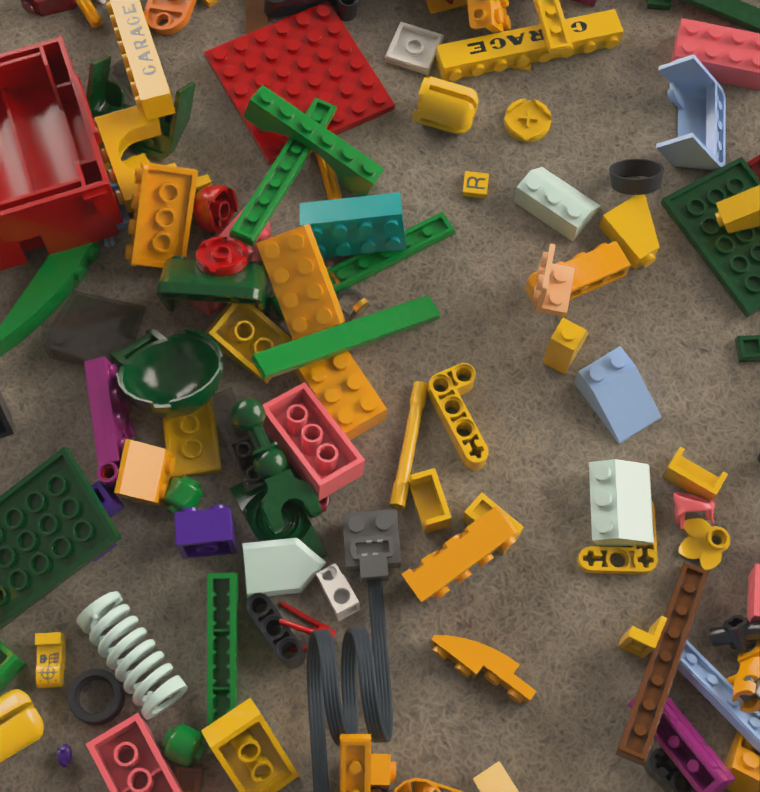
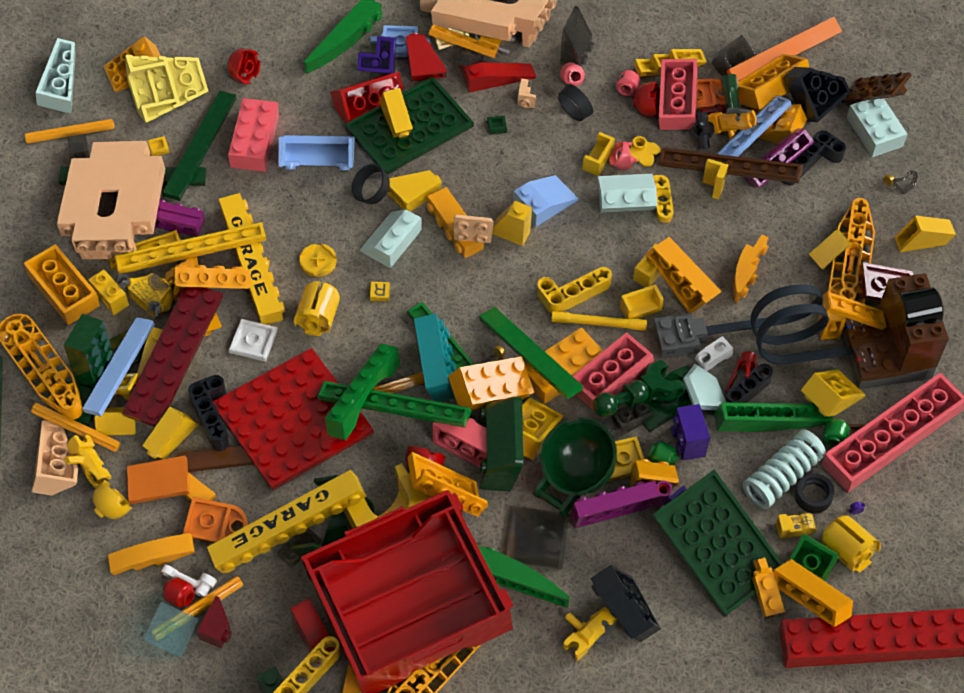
camera: 95 degrees left, 10 degrees down
(221, 256) = (484, 428): red tile -> none

